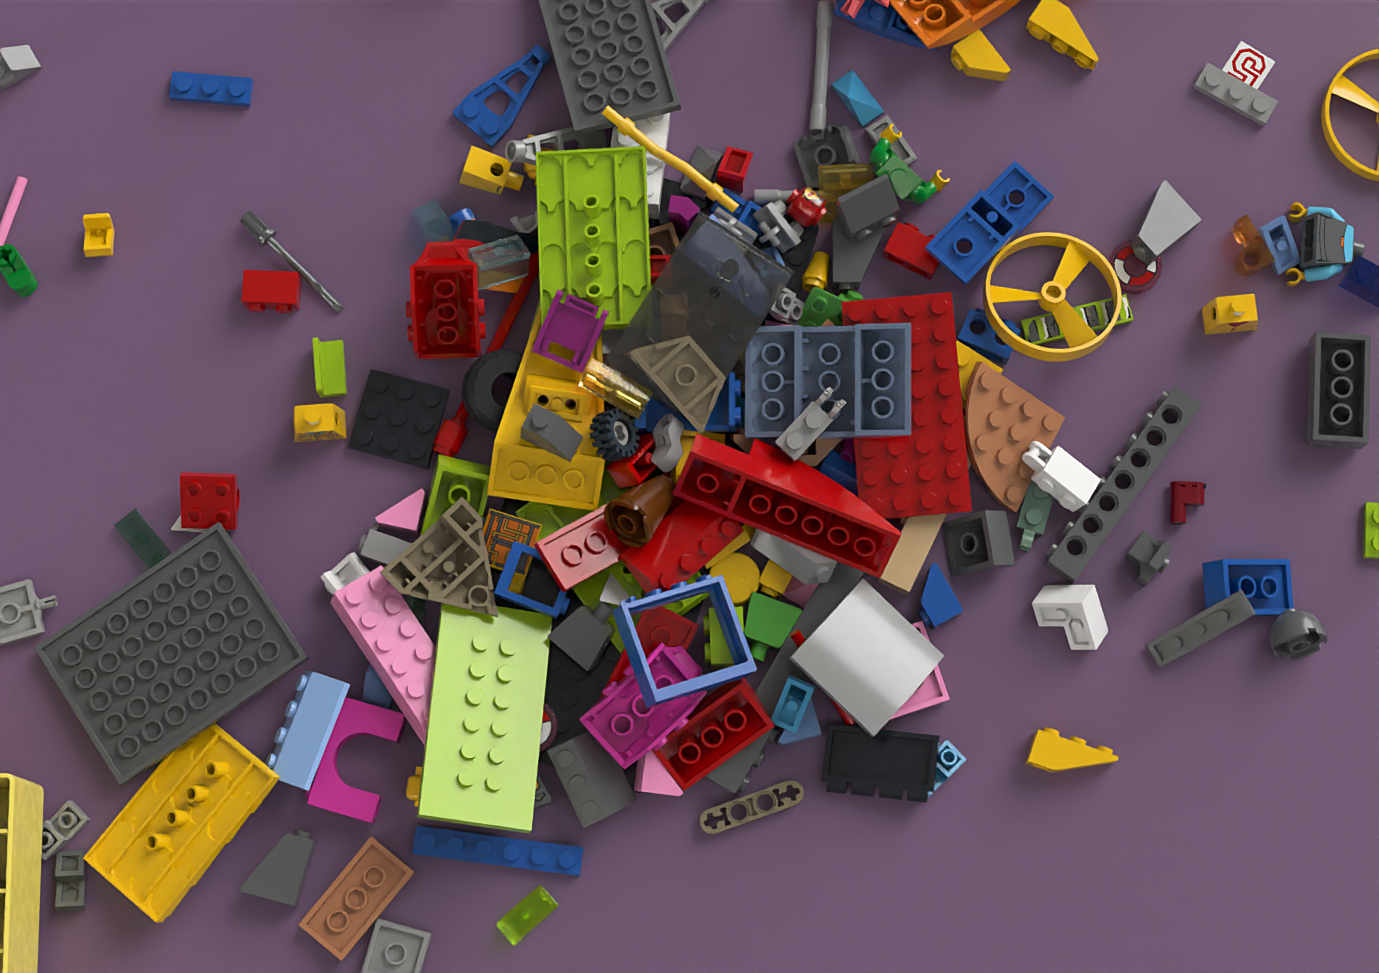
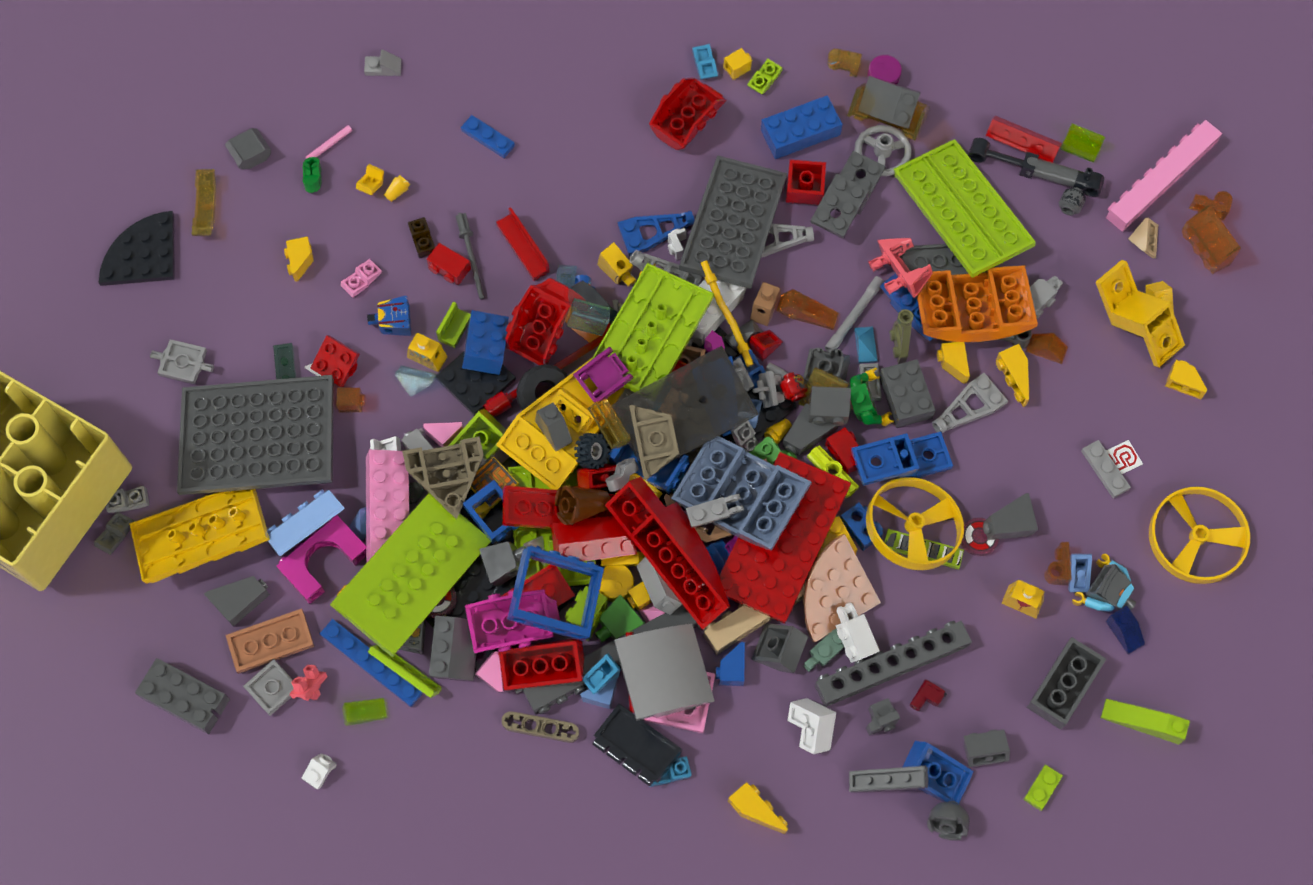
camera: 30 degrees right, 10 degrees down
(72, 388) = (299, 255): none -> yellow slope
(138, 226) = (397, 187): none -> yellow cone
(169, 372) = (361, 279): none -> bright pink slope
(212, 273) = (421, 237): none -> dark brown slope
(244, 401) = (392, 317): none -> blue torso
(260, 539) = (350, 399): none -> clear orange brick
(323, 465) = (414, 379): none -> clear light blue slope
(350, 210) = (523, 245): none -> red panel
(387, 368) = (485, 342): none -> blue brick
(442, 924) = (308, 686): none -> coral hips
(544, 103) = (674, 242): none -> white bracket
(551, 837) = (406, 671): none -> lime tile
(704, 115) = (766, 300): none -> medium nougat torso
(759, 95) = (806, 309): none -> clear orange slope
(896, 281) = (823, 461): none -> neon yellow piece
(901, 65) = (901, 335): none -> olive plate
(946, 134) = (906, 393): none -> dark grey brick
(1039, 77) = (985, 391): none -> light grey plate
(1290, 523) = (986, 748): none -> dark grey brick

